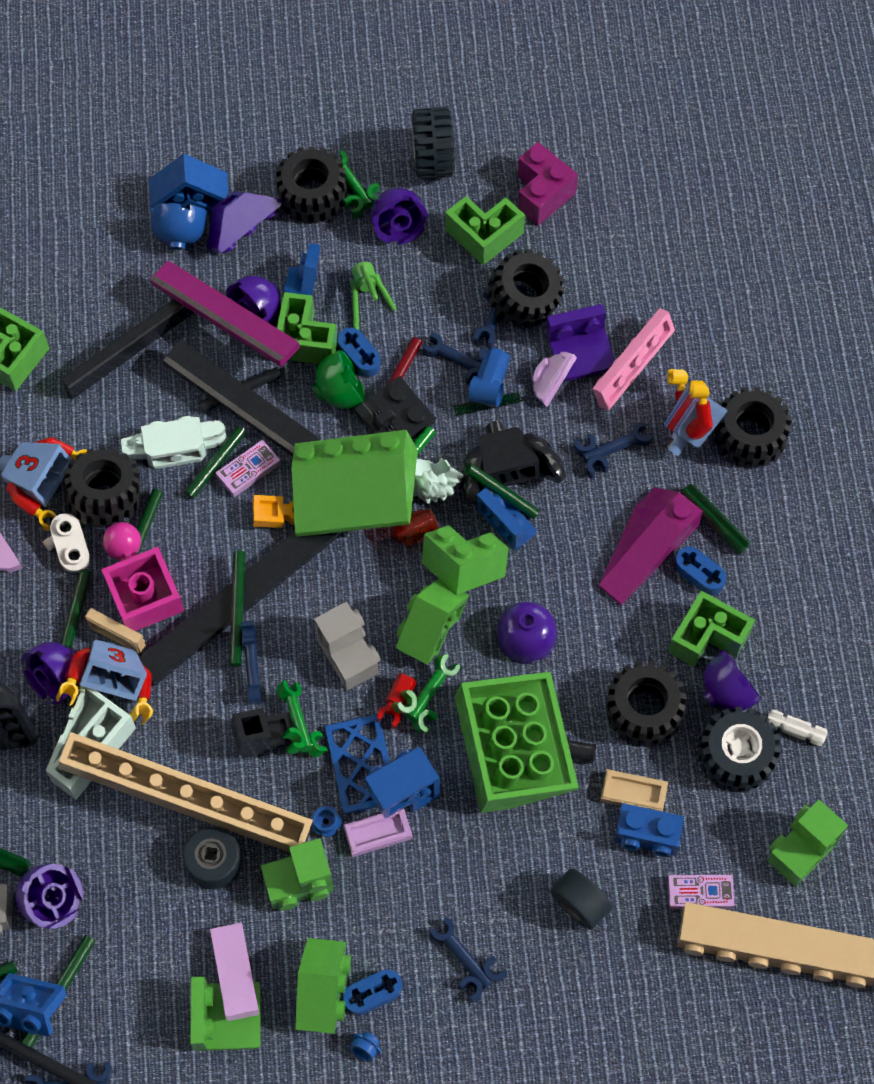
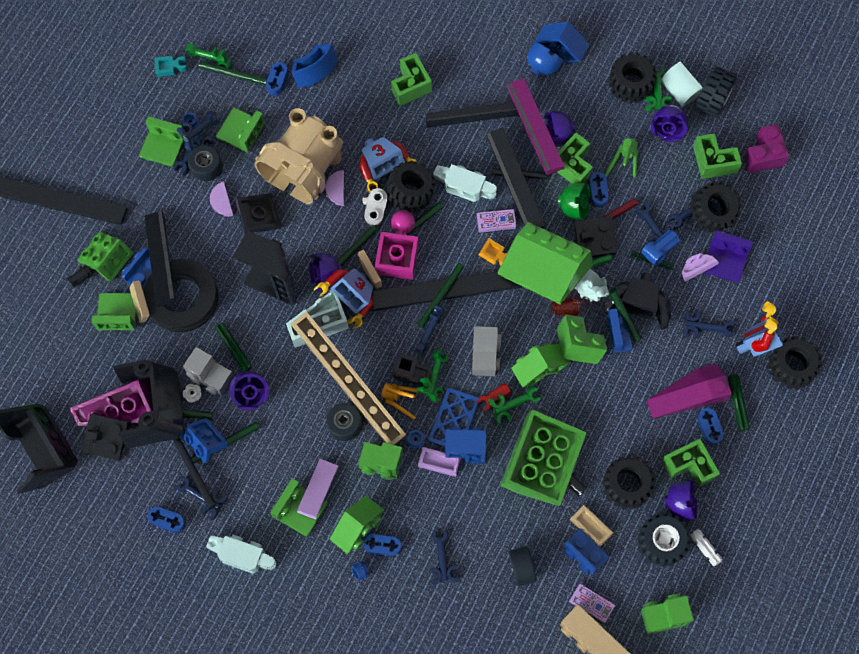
camera: 35 degrees right, 5 degrees up
(215, 462) = (480, 207): dark green bar -> none
(238, 217) = (579, 74): slope -> none
(253, 777) = (392, 392): none -> light orange plant
(303, 278) = (593, 129): blue bracket -> none
(380, 159) = (681, 84): none -> light aqua brick
(526, 632) = (589, 402): dark purple cylinder -> none
(633, 359) = (752, 283): bright pink plate -> none

